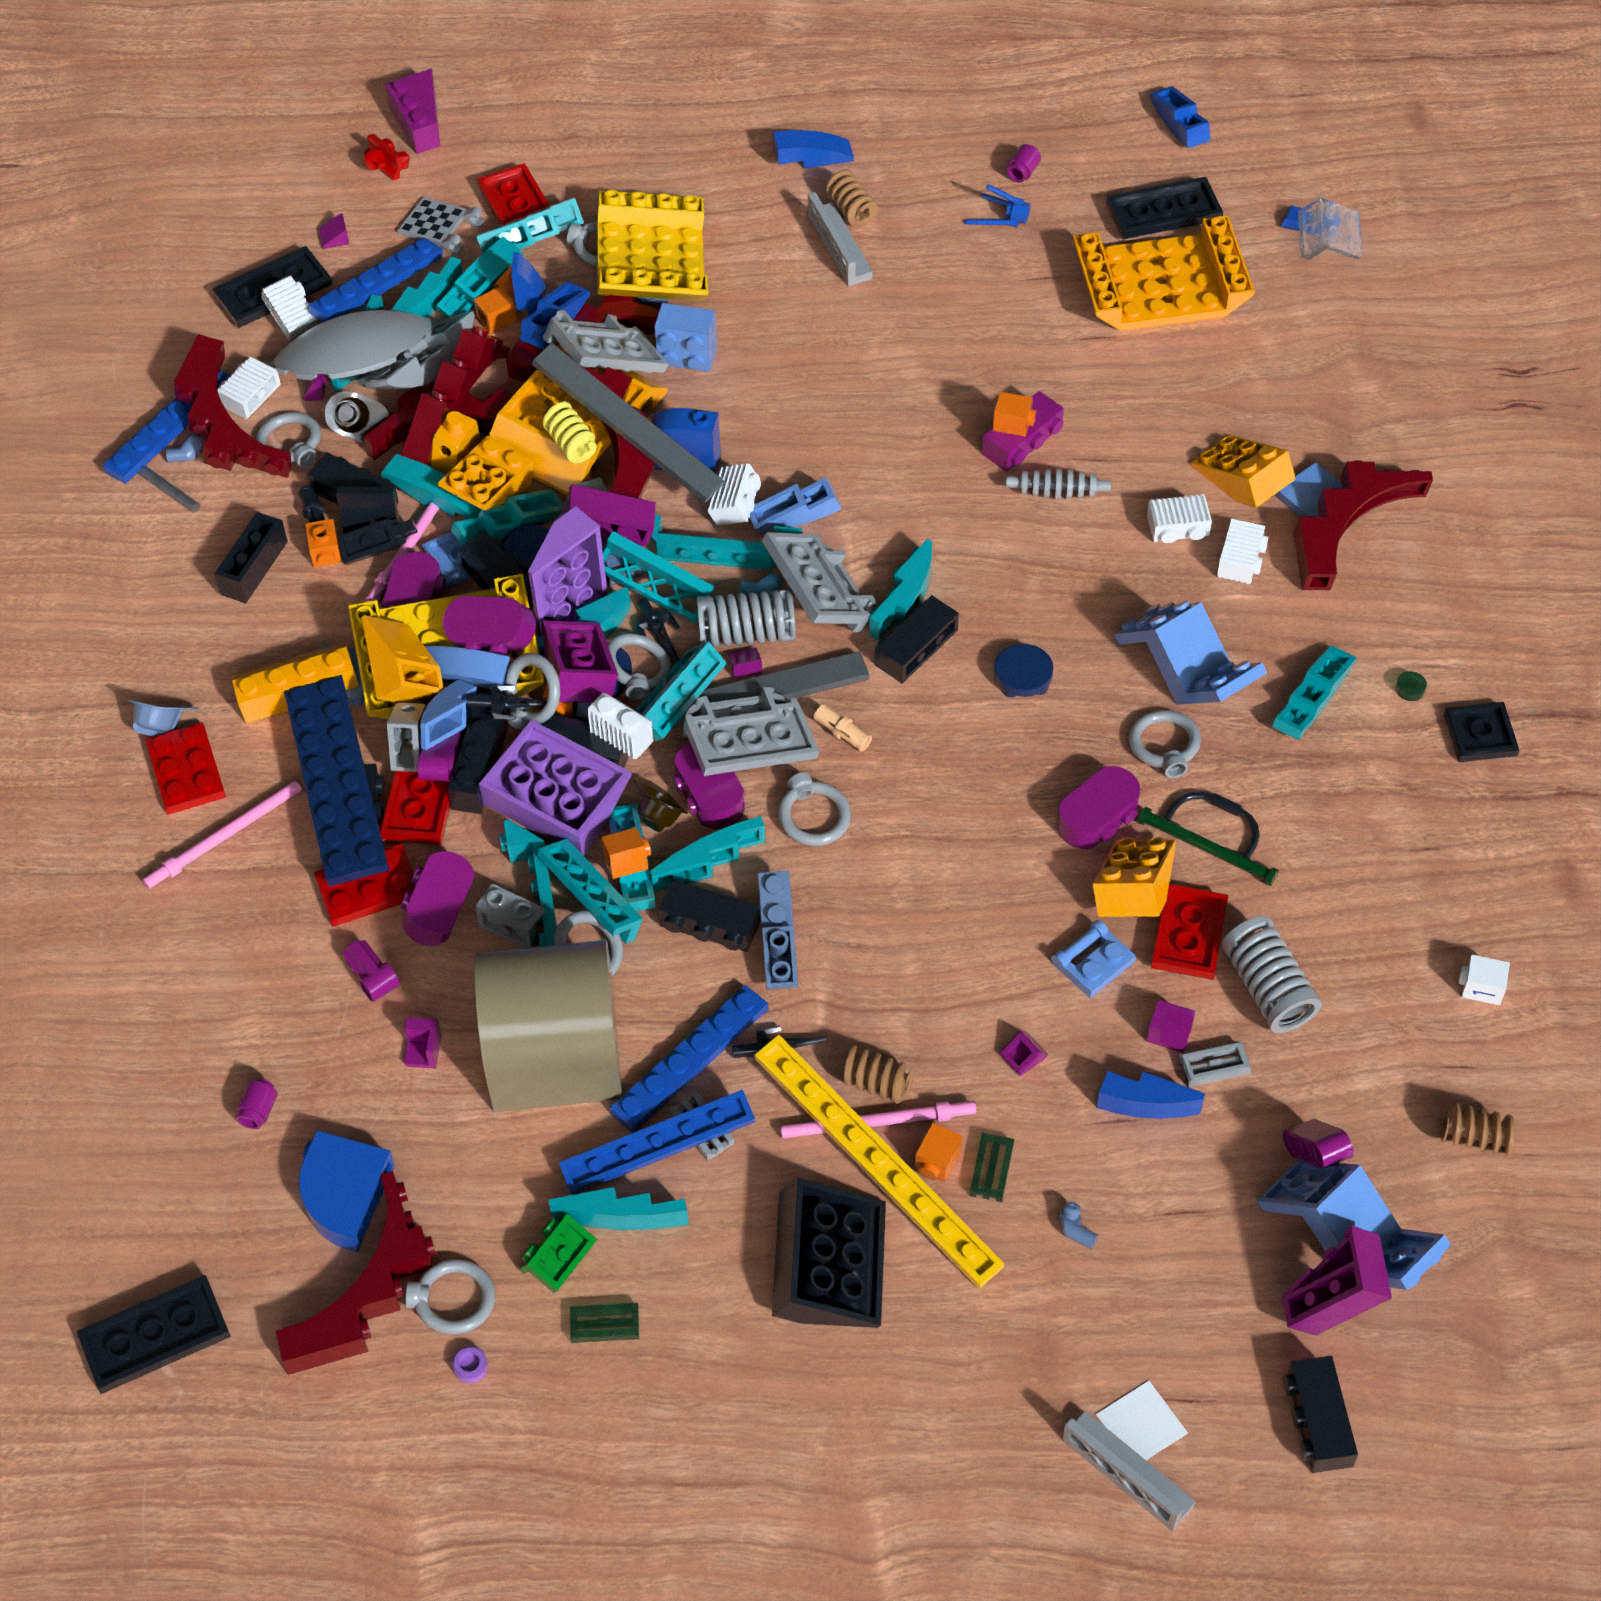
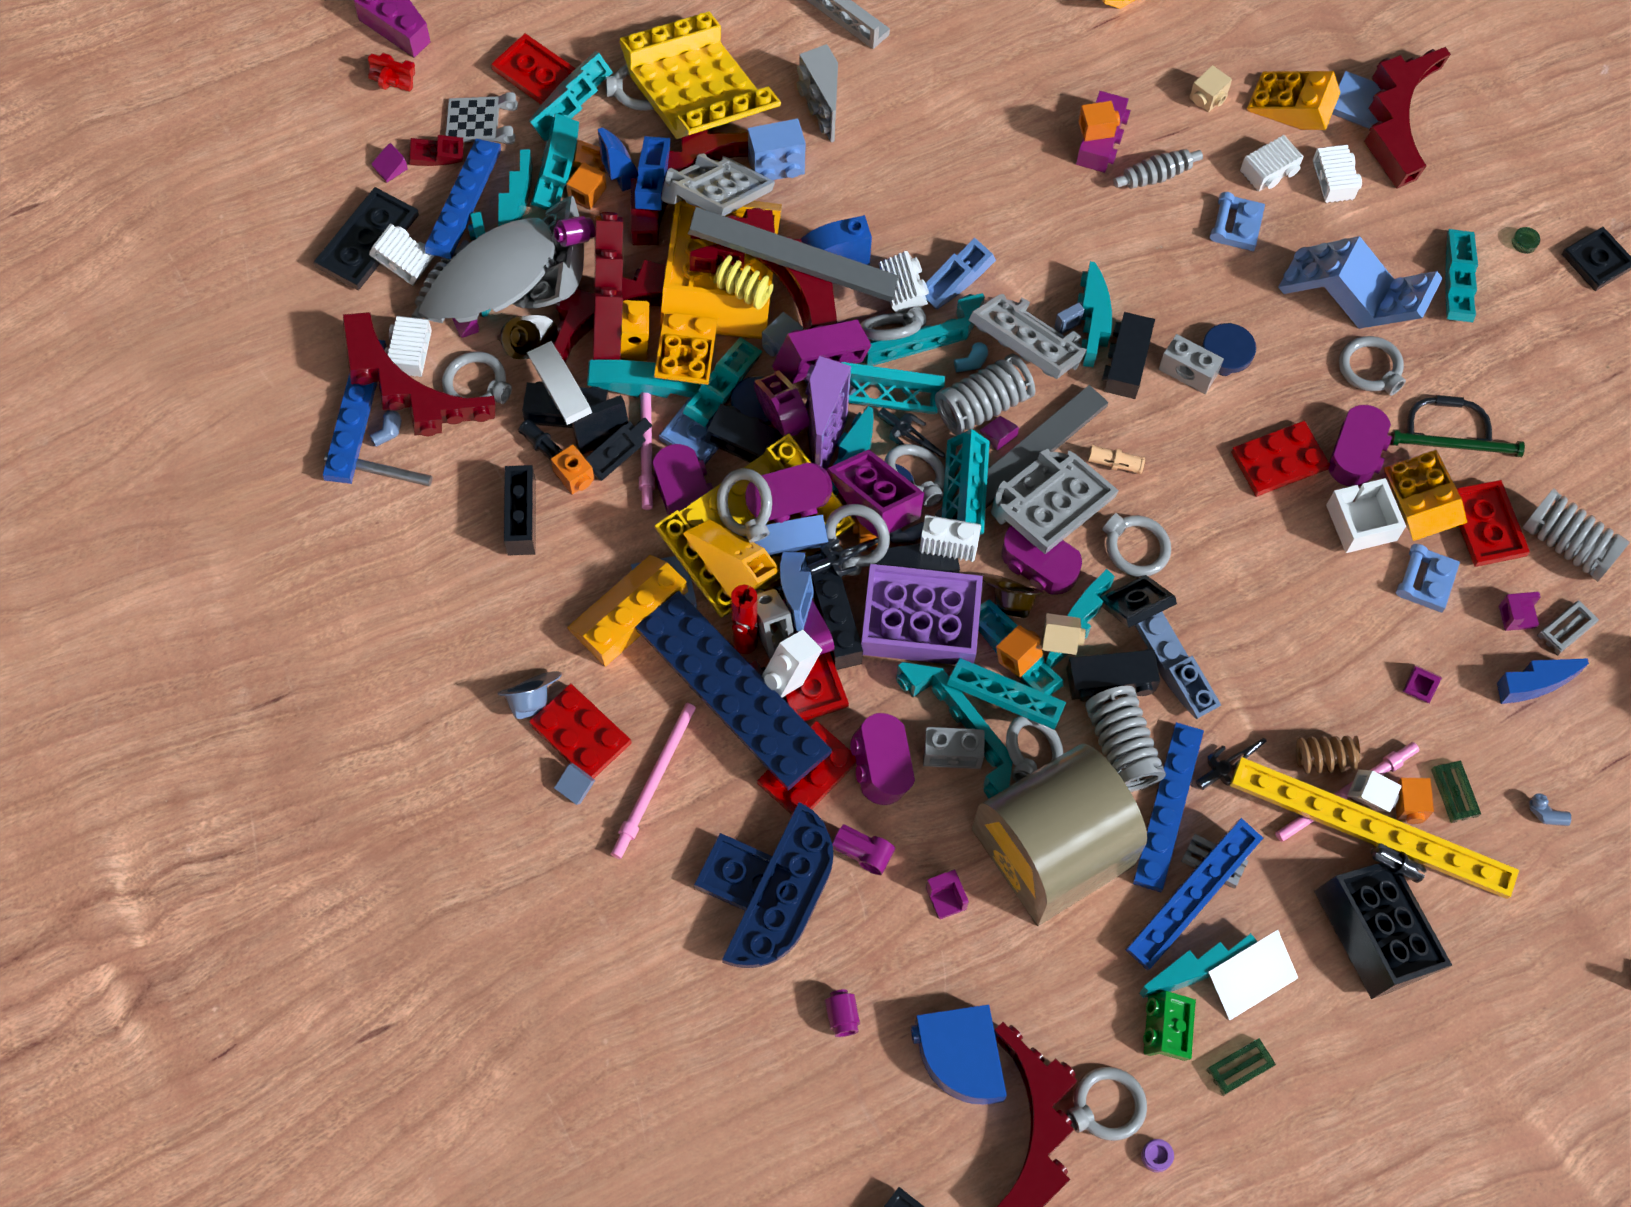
camera: 30 degrees left, 10 degrees up
(149, 807) = (574, 784): none -> sand blue tile
(261, 967) = (772, 890): none -> dark blue plate
(349, 459) = (559, 382): none -> white slope
(376, 711) = (744, 619): none -> red piece
(380, 237) = (436, 153): none -> dark red slope
(396, 774) = (791, 663): none -> white brick
(438, 644) = (755, 528): none -> light grey piece
(443, 335) = (574, 230): none -> magenta brick
(528, 542) = (782, 404): none -> magenta brick
(545, 397) = (708, 257): none -> dark red slope
(667, 1241) = (1253, 975): none -> white sticker
(669, 850) = (1062, 634): none -> tan brick
(678, 975) = (1125, 737): none -> light grey piece
(699, 527) = (912, 322): none -> light grey piece
(767, 298) = (819, 85): none -> light grey slope
(774, 858) = (1138, 601): none -> black tile
(877, 583) = (1069, 318): none -> sand blue tile
(880, 1201) = (1398, 862): none -> black axle
(900, 1126) = (1374, 790): none -> white brick
(972, 668) = (1190, 364): none -> light grey brick
(1012, 790) = (1280, 458): none -> red plate
(1056, 879) = (1370, 519): none -> white piece
(1116, 567) = (1246, 222): none -> medium blue plate
(1159, 430) = (1210, 89): none -> tan brick

